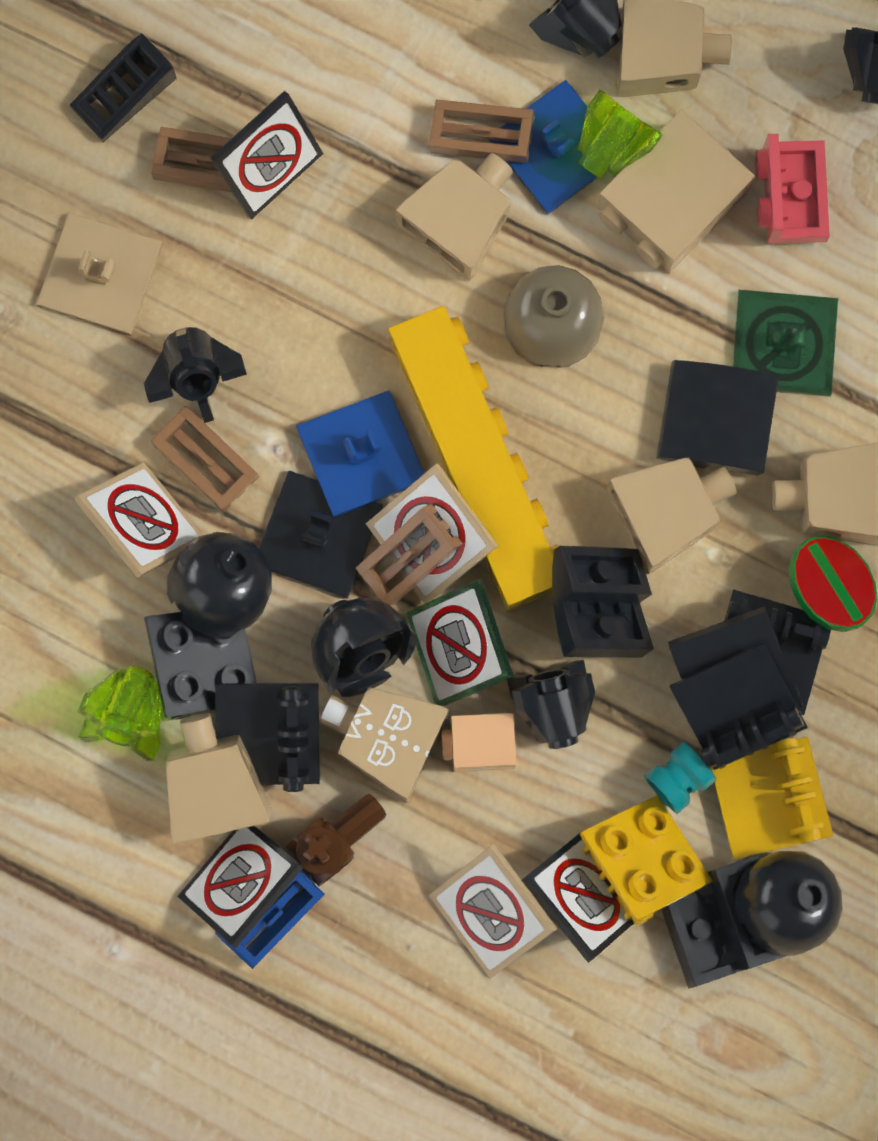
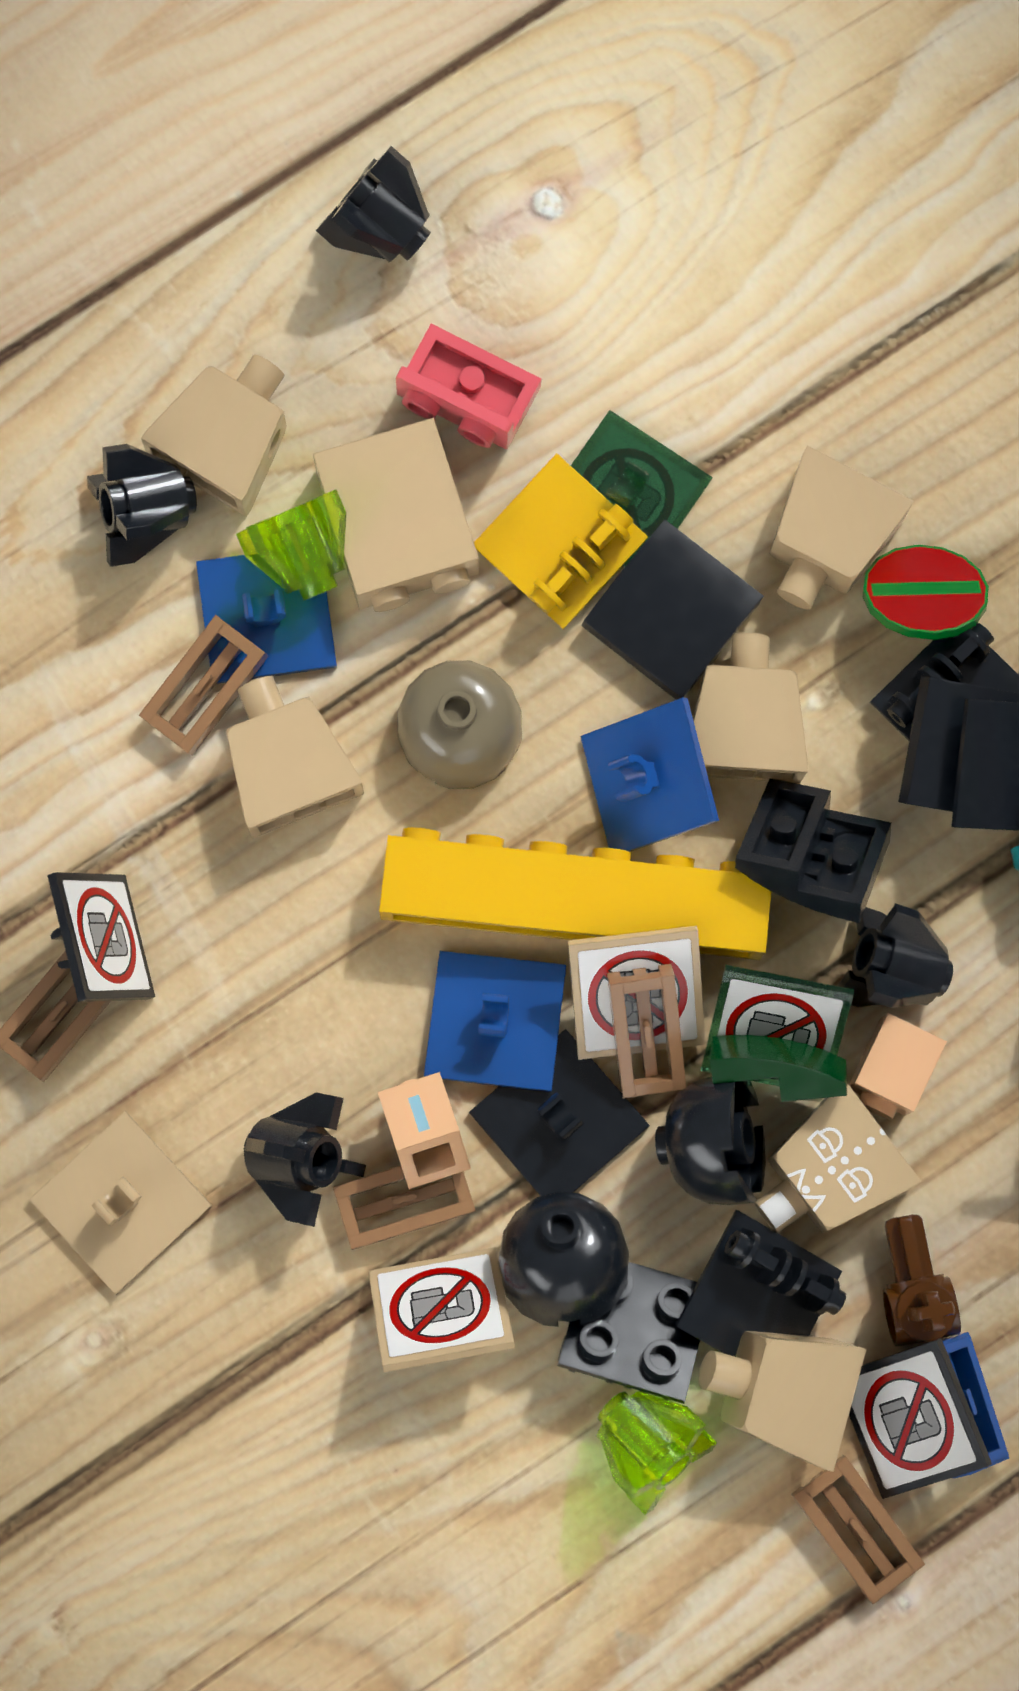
camera: 65 degrees left, 0 degrees up
(127, 882) = (891, 1576): none -> medium nougat tile
(256, 442) = (424, 1130): none -> light nougat brick
(438, 667) = (801, 1068): none -> dark green slope
(588, 462) = (650, 777): none -> blue piece
(722, 313) = (560, 541): none -> yellow hinge

